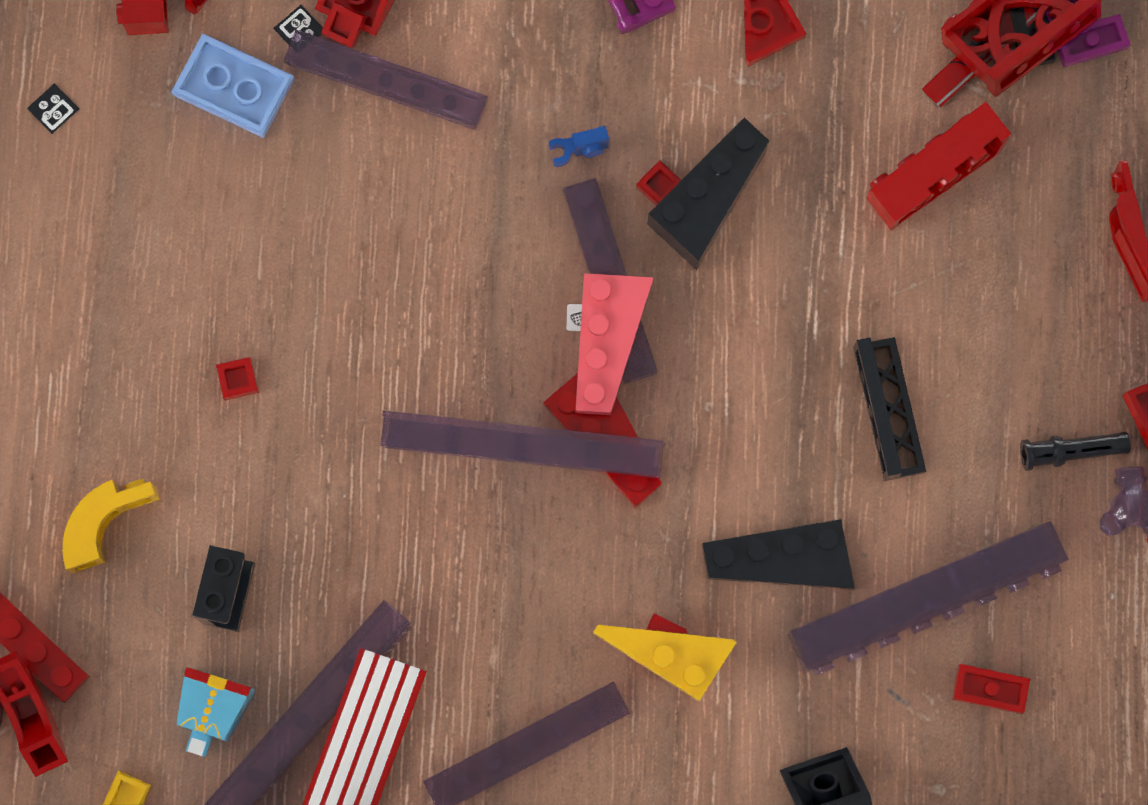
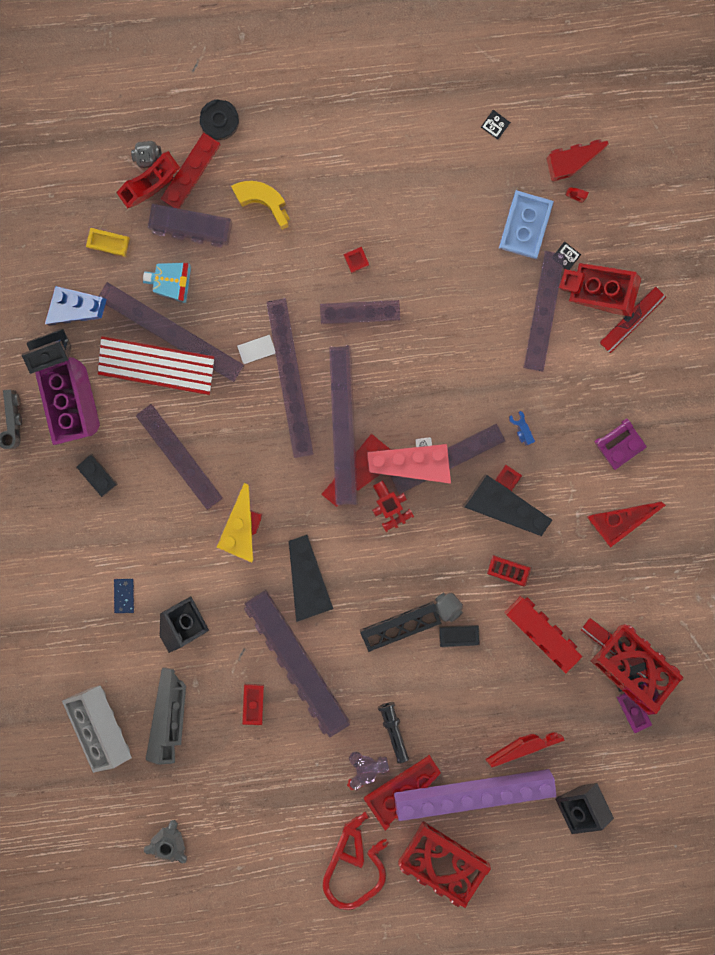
camera: 80 degrees right, 10 degrees up
(119, 655) = (189, 224): none -> clear purple brick
(223, 589) = (233, 275): black panel -> none
(329, 386) = (360, 312): none -> plate
(360, 578) = (256, 349): none -> white sticker
(422, 526) = (290, 378): none -> clear purple plate
(673, 388) = (389, 505): none -> red piece
(832, 182) = (525, 576): none -> red slope
(867, 318) = (448, 607): none -> dark grey head
(920, 311) = (459, 636): none -> black tile

